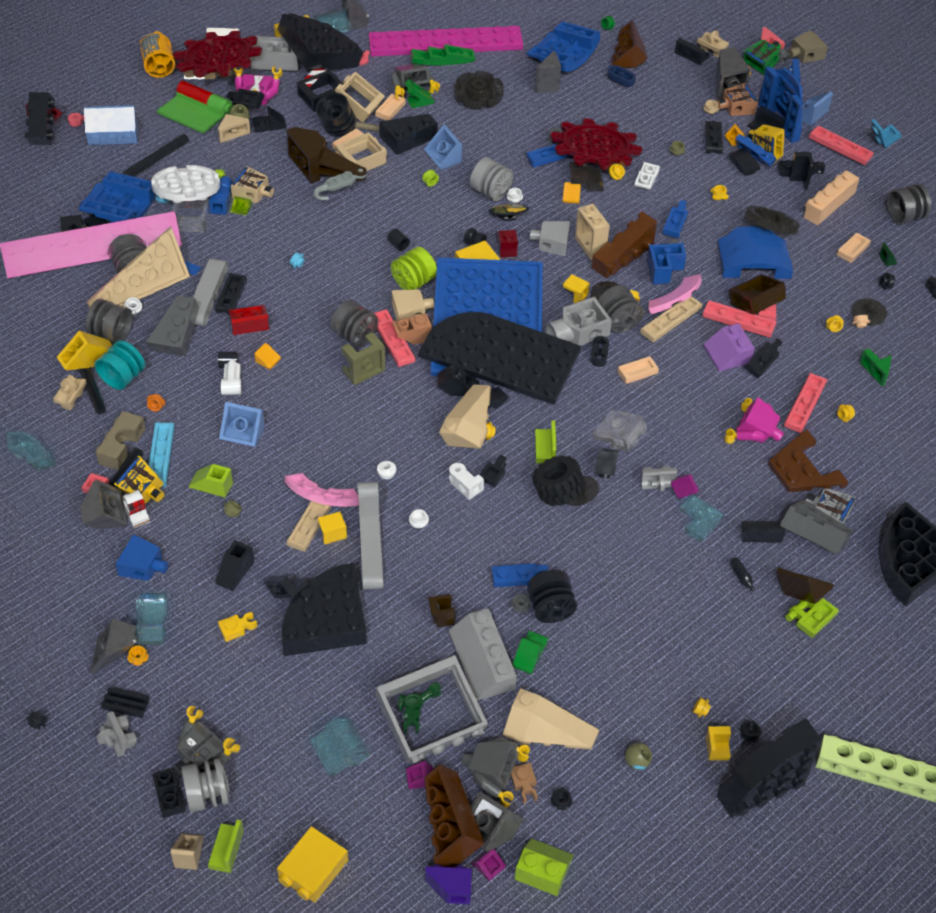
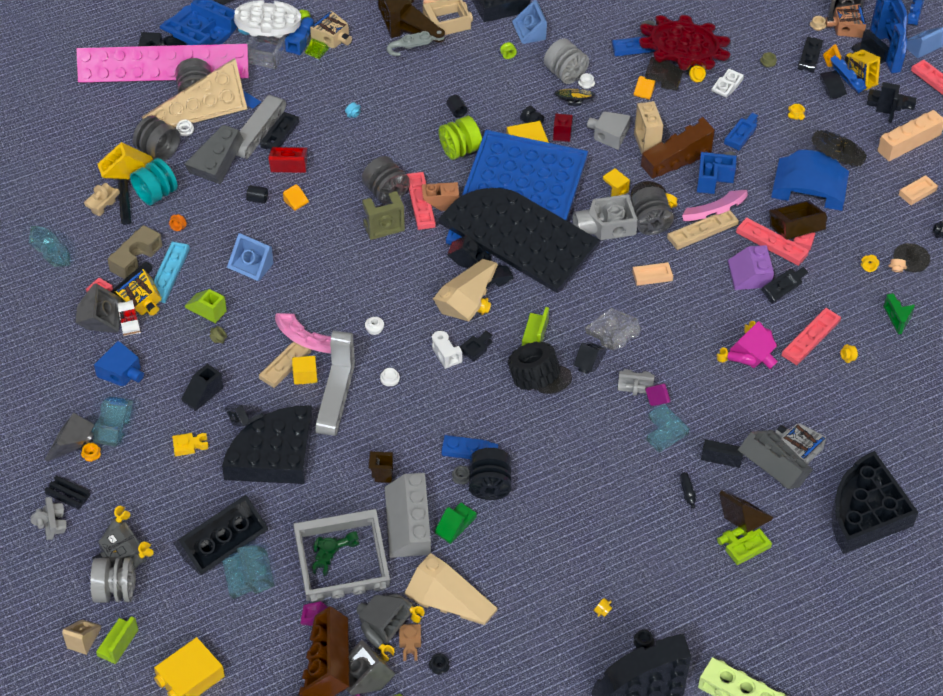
camera: 15 degrees right, 0 degrees up
(168, 793) = (80, 581): black slope -> none
(231, 382) = (254, 215): white piece -> none
(301, 714) = (221, 535): none -> black slope
(410, 303) = (447, 170): tan torso -> none
(596, 350) = (623, 250): black beam -> none
(638, 756) = (524, 639): olive piece -> none
(718, 742) = (608, 644): yellow panel -> none
(798, 472) = (779, 401): reddish brown wing -> none

